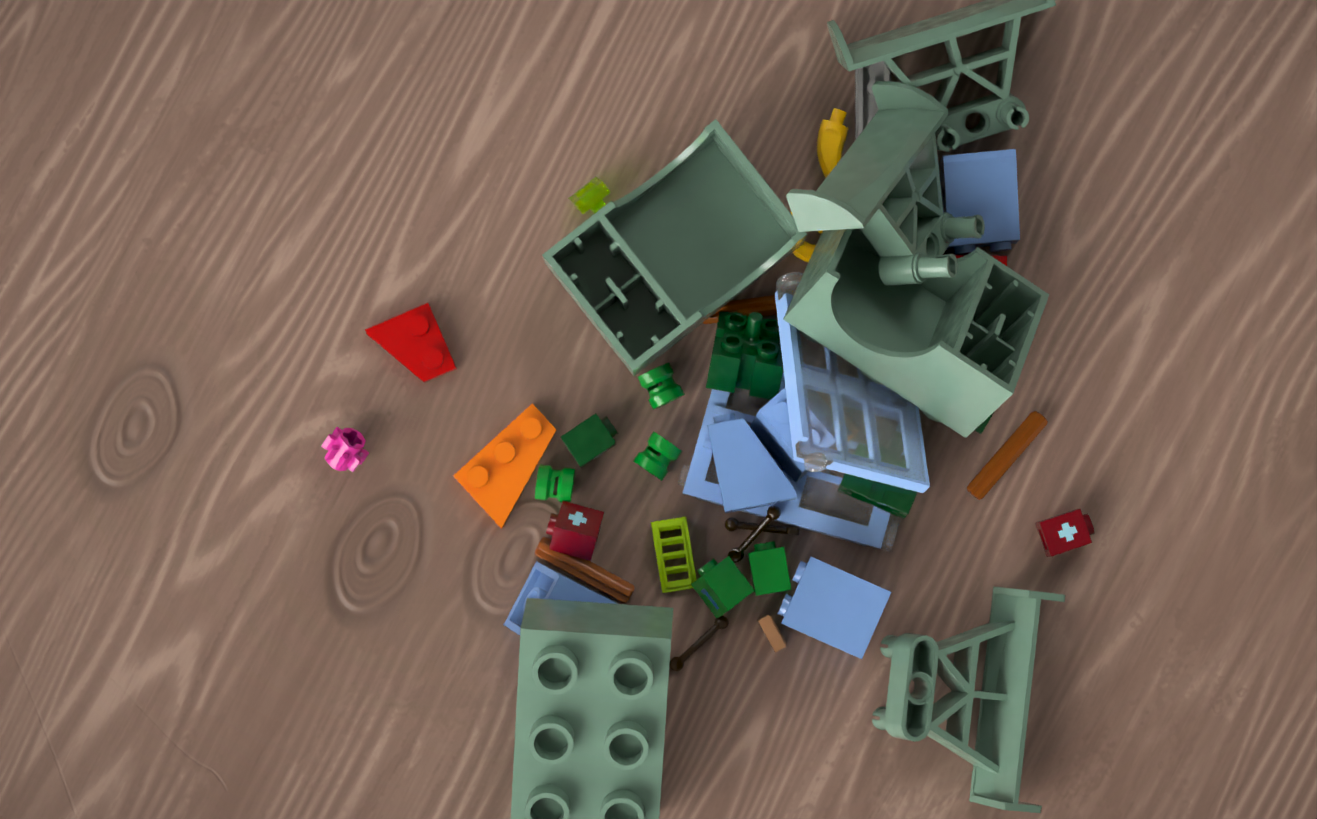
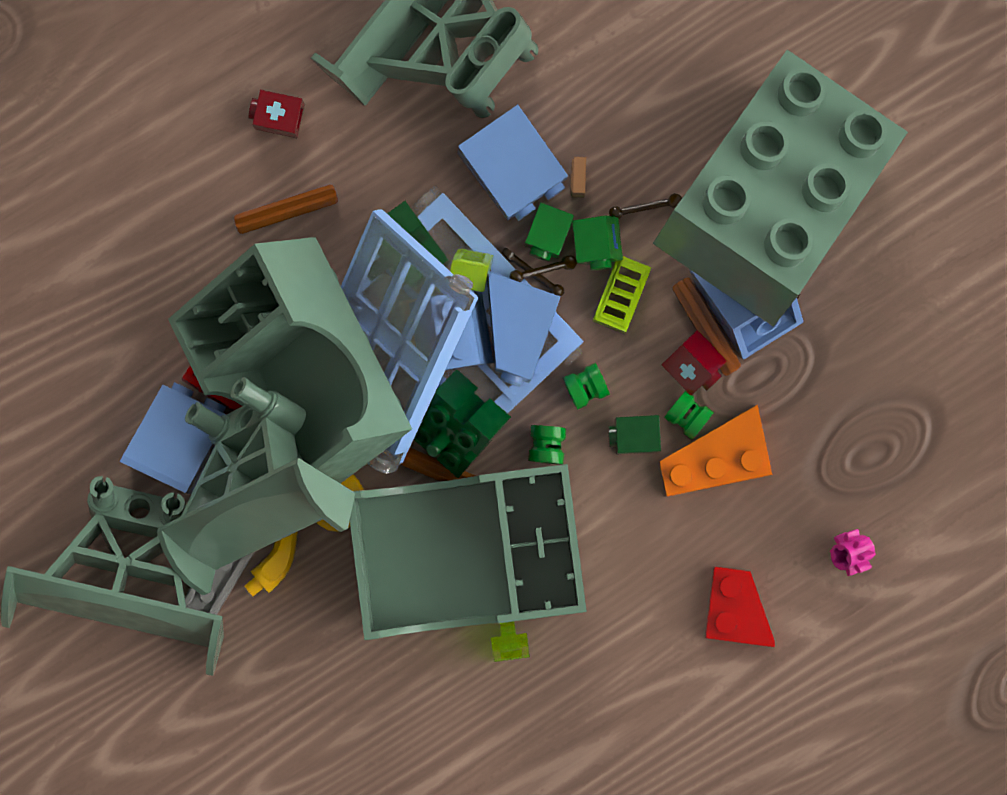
camera: 155 degrees left, 0 degrees up
(816, 493) = (473, 266): none -> lime slope

